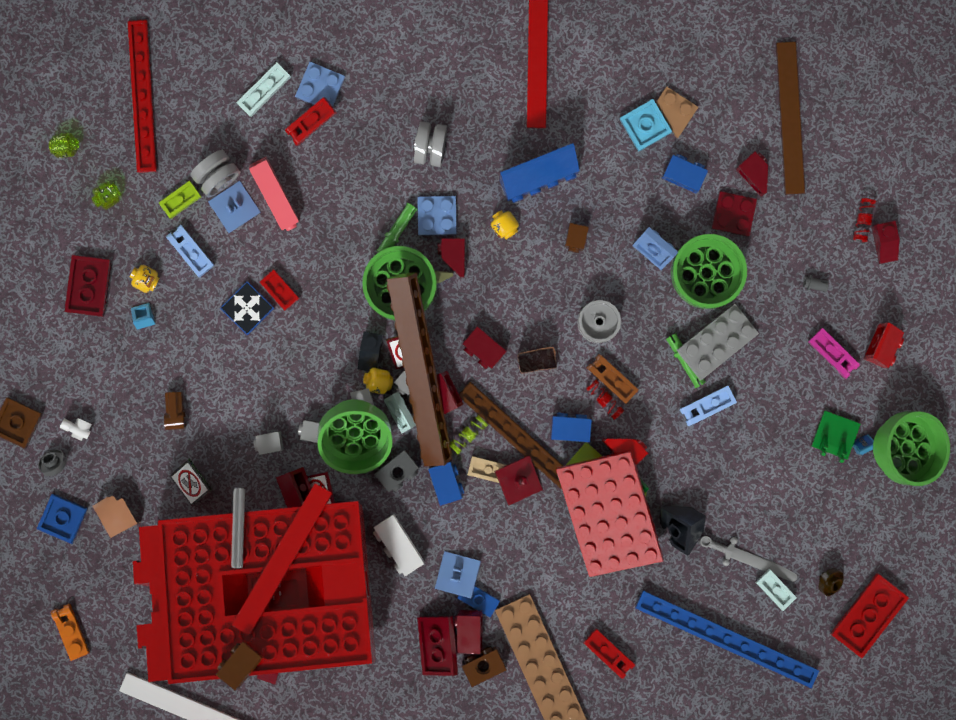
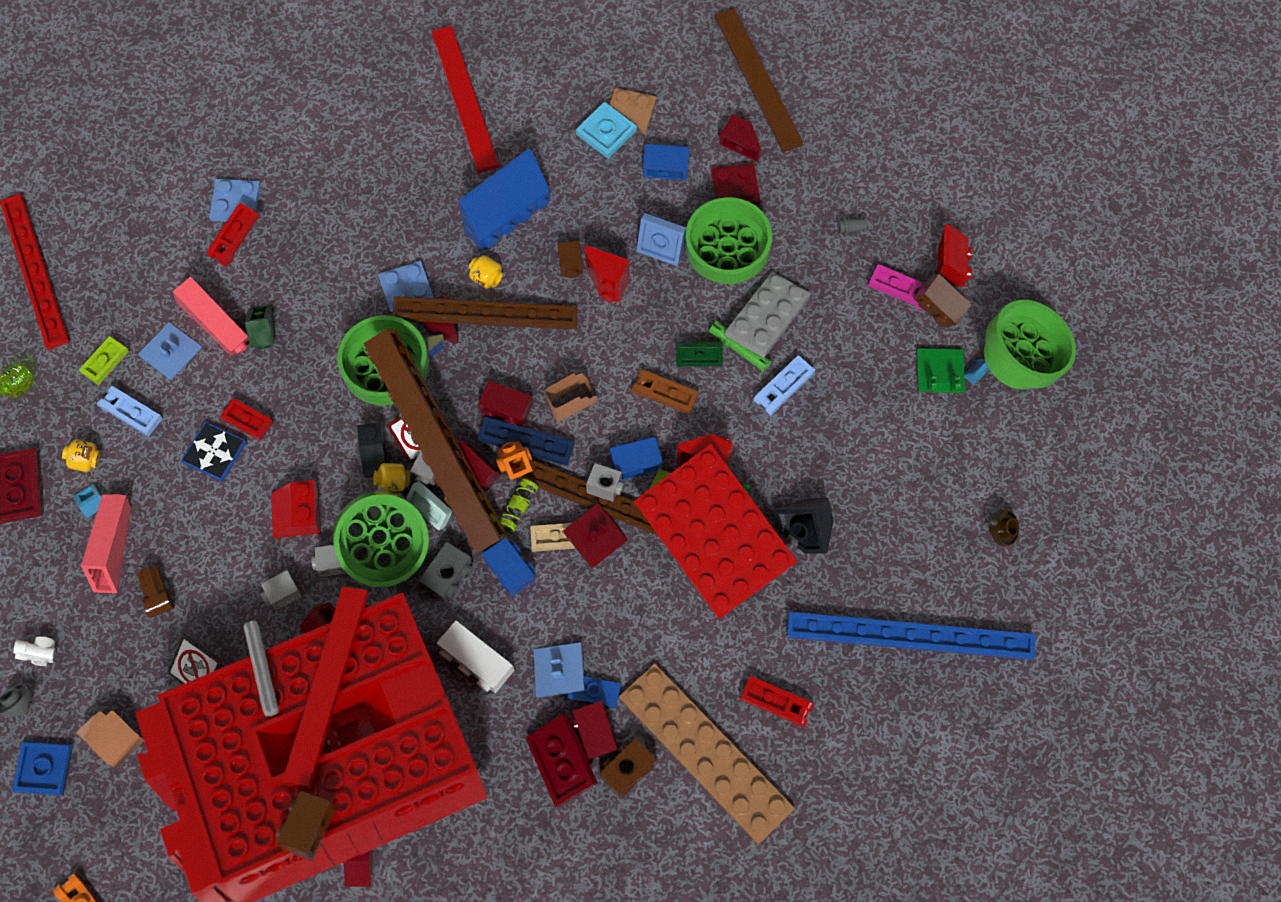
camera: 20 degrees left, 20 degrees down
(148, 359) = (107, 543): none -> coral slope
(215, 173) = (136, 315): light grey wheel -> none
(263, 90) = (171, 221): light aqua plate -> none
(297, 381) = (296, 510): none -> red slope
(311, 212) = (260, 327): none -> dark green slope
(398, 227) = (368, 303): bright green pin -> none
(431, 144) = (370, 213): light grey wheel -> none
(476, 402) = (514, 460): none -> orange brick
(491, 384) = (538, 443): none -> dark blue plate
(492, 265) = (485, 313): none -> reddish brown tile
(531, 443) = (601, 473): none -> light grey brick
(587, 321) = (626, 333): light grey wheel -> none
(600, 265) = (607, 273): none -> red slope
(606, 398) = (663, 415): red piece -> none
(650, 357) = (699, 354): none -> dark green plate
(747, 558) = (876, 536): light grey sword -> none
(775, 590) = (945, 560): light aqua plate -> none
(859, 380) = (941, 301): none -> reddish brown brick
(864, 218) = (880, 144): red piece -> none
(869, 615) = (1065, 553): red plate -> none
(886, 241) = (909, 159): dark red slope -> none

